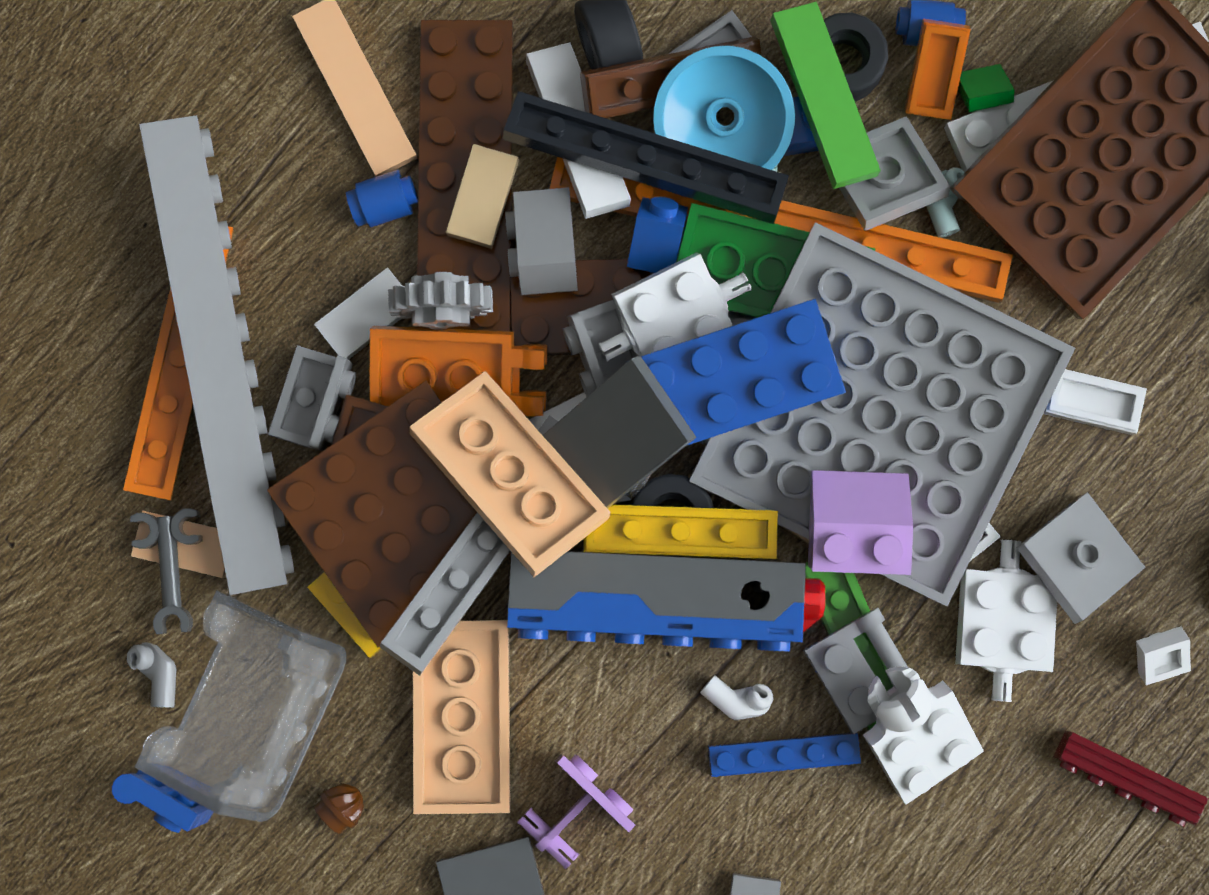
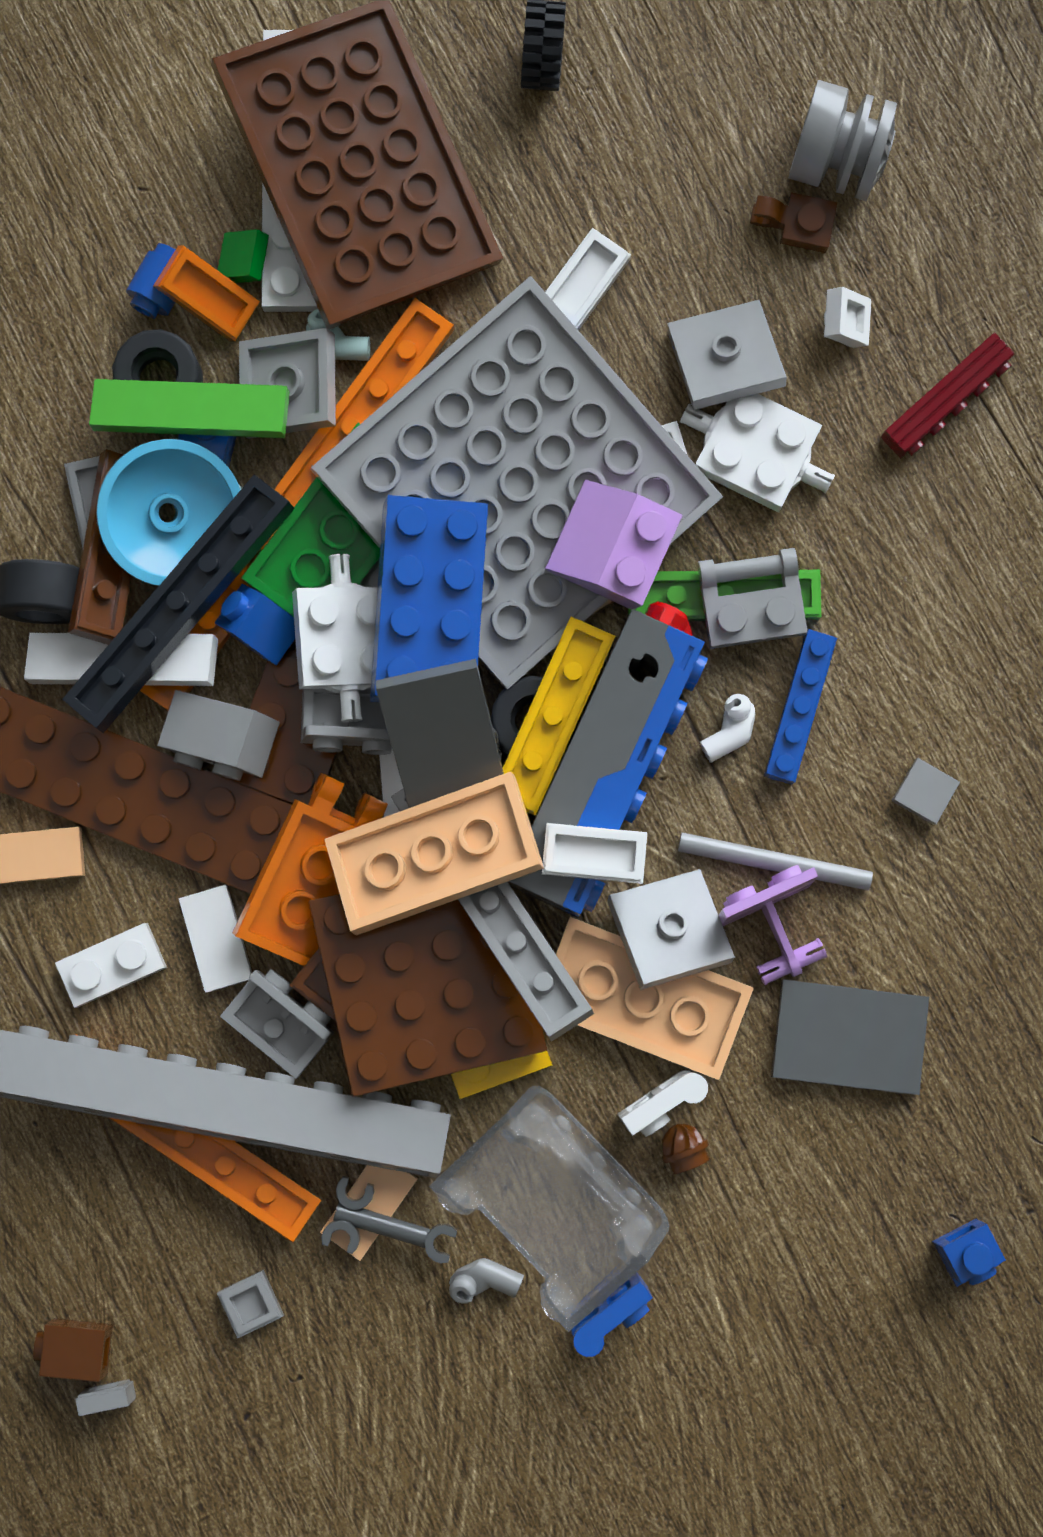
camera: 70 degrees left, 0 degrees up
(58, 475) = (250, 1304): none -> light grey tile
(306, 233) = (111, 965): none -> white plate
(360, 762) = (650, 1111): none -> white plate
(382, 199) = (109, 877): blue brick -> none
(440, 300) = (238, 855): light grey gear -> none
(482, 196) = (148, 776): tan tile -> none
(532, 716) = (670, 929): none -> plate
(566, 618) = (594, 853): none -> white tile
(633, 787) = (773, 860): none -> light grey bar
(918, 732) = (830, 571): white plate -> none

